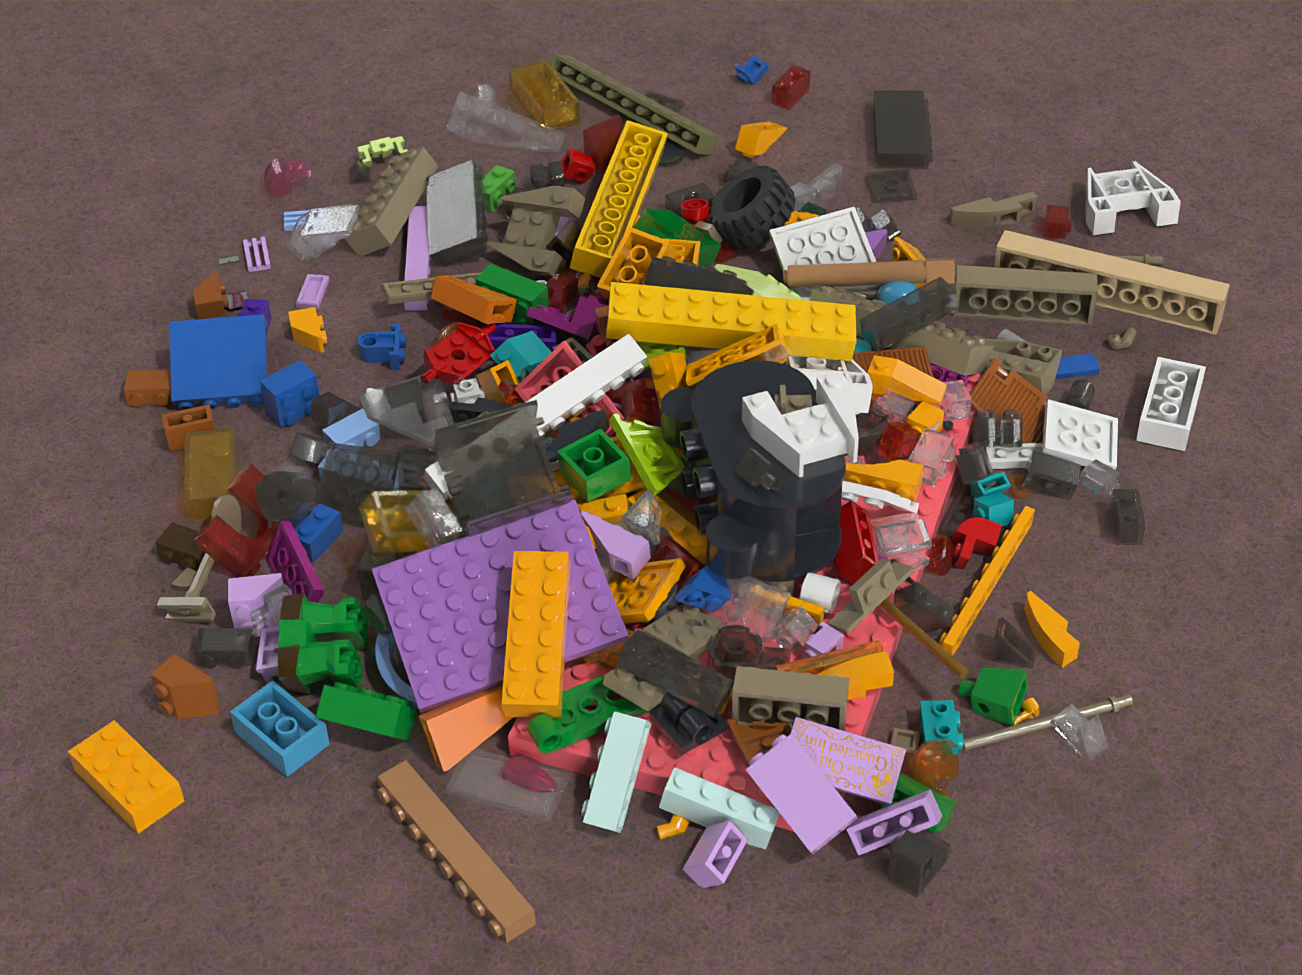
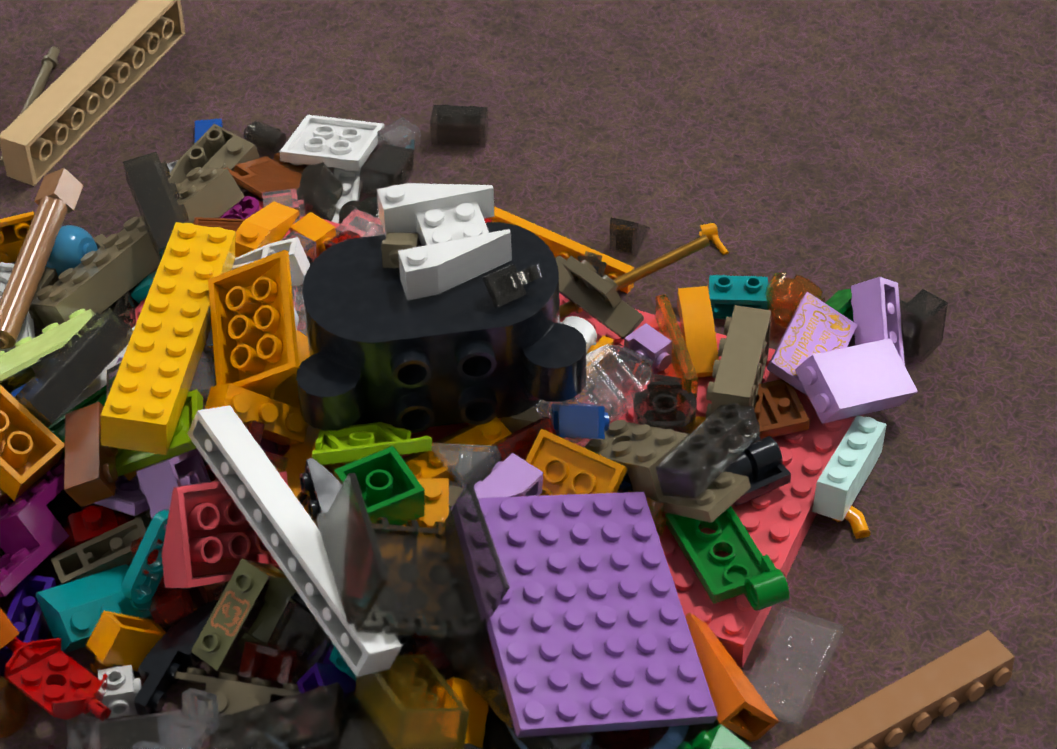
camera: 85 degrees left, 0 degrees up
(433, 518) = (440, 662): clear brick -> none
(528, 774) = (784, 642): clear pink plate -> none
(536, 634) = (651, 561): light orange brick -> none
(616, 772) = (810, 539): light aqua brick -> none
(715, 854) = (904, 479): lavender brick -> none
(997, 693) = (704, 260): green torso -> none
(1025, 294) = (100, 143): dark tan brick -> none
(1050, 631) = (607, 202): light orange slope -> none
(1083, 735) = (748, 199): clear slope -> none
(1112, 704) = (707, 177): dark tan bar -> none
(1117, 343) = (179, 97): dark tan arm -> none
(1171, 404) = (300, 70): white brick -> none

